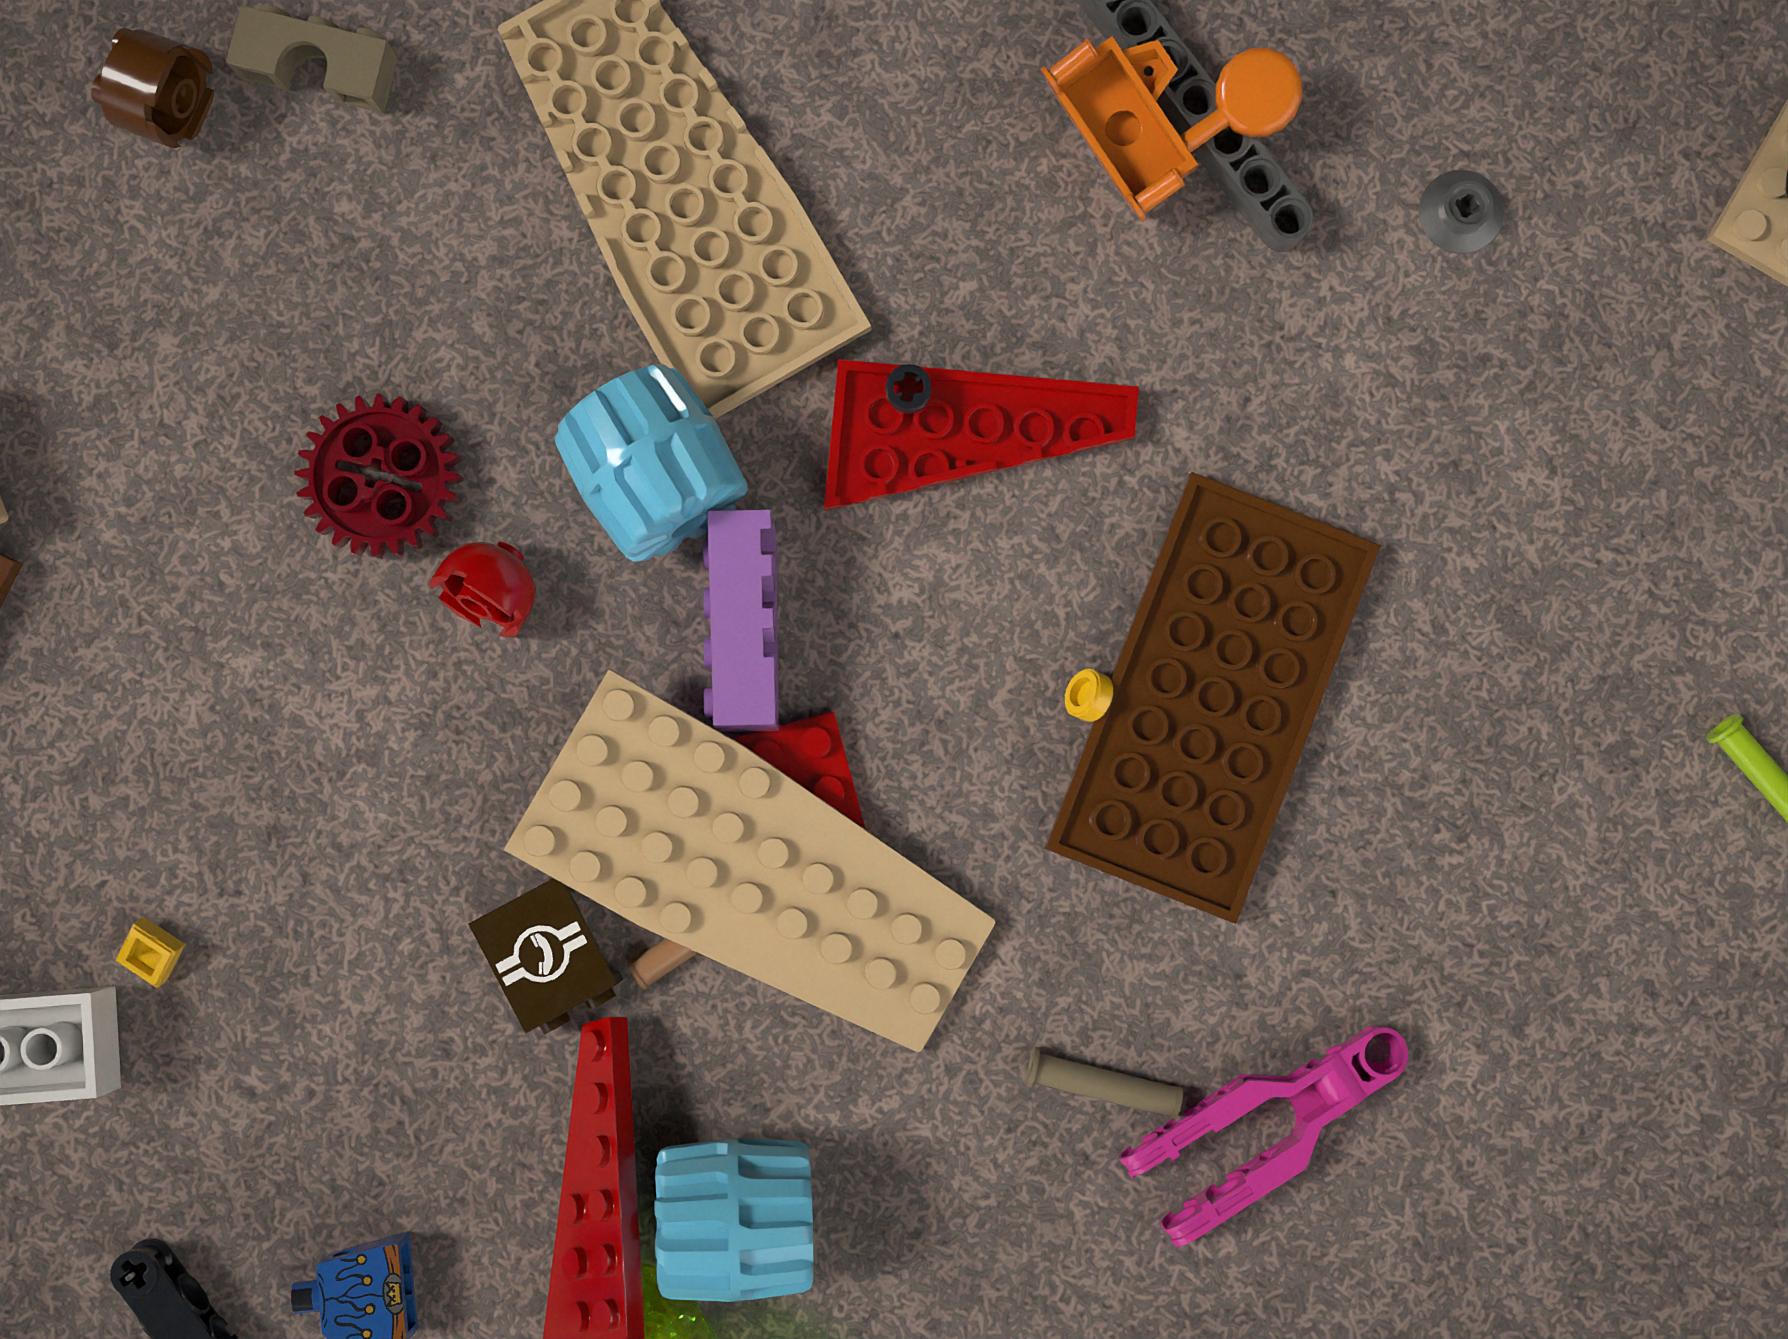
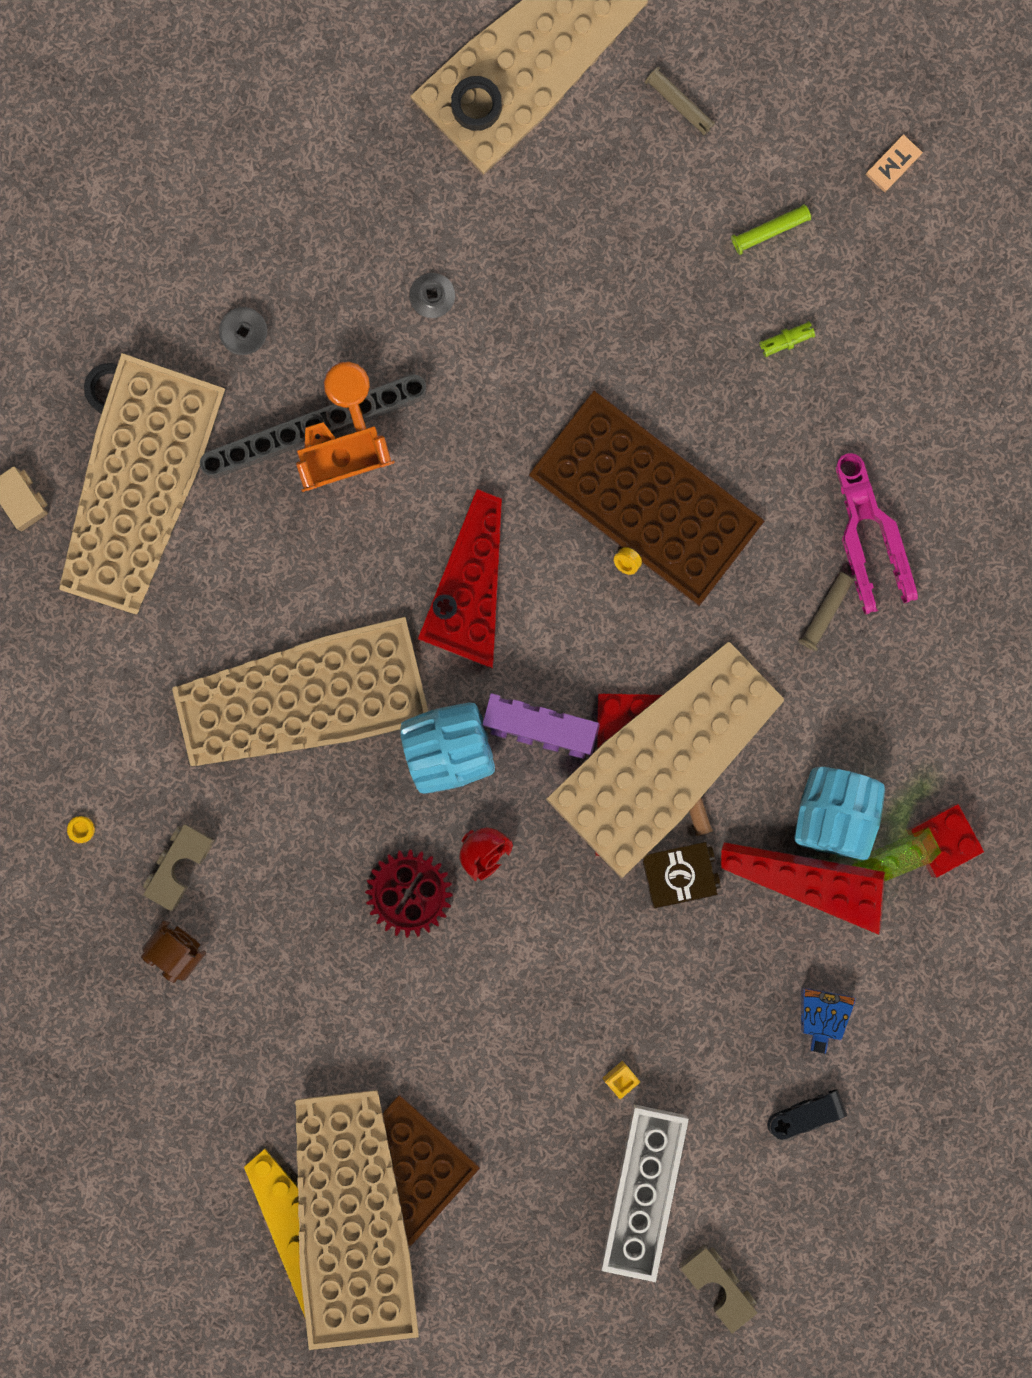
camera: 80 degrees left, 0 degrees up
(1580, 870) = (787, 339): none -> lime pin

